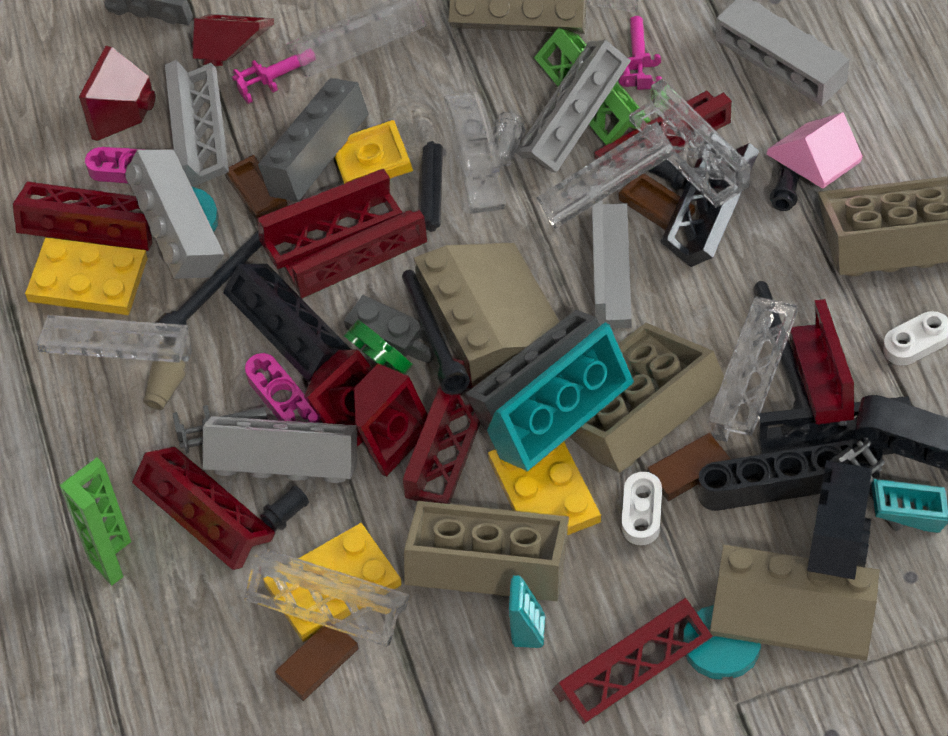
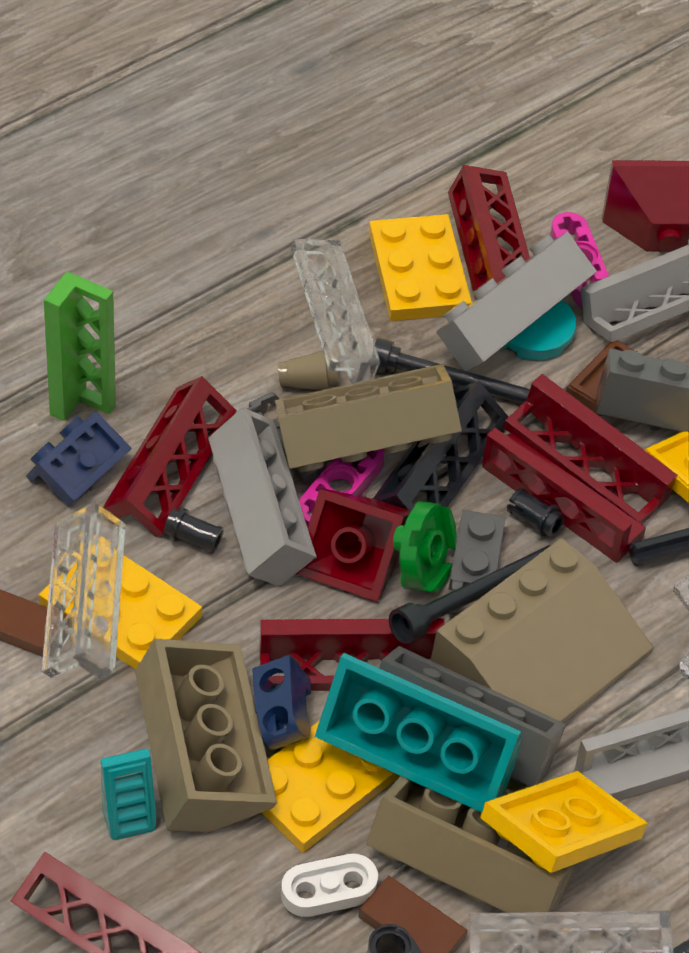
camera: 60 degrees right, 5 degrees down
(175, 571) = (80, 459): none -> dark blue bracket
(243, 345) = (368, 417): none -> dark tan slope
(367, 273) = (545, 518): none -> black pin
(388, 416) = (335, 576): dark red slope -> none
(480, 489) = (282, 707): none -> dark blue leg
(658, 336) = (563, 821): none -> yellow plate

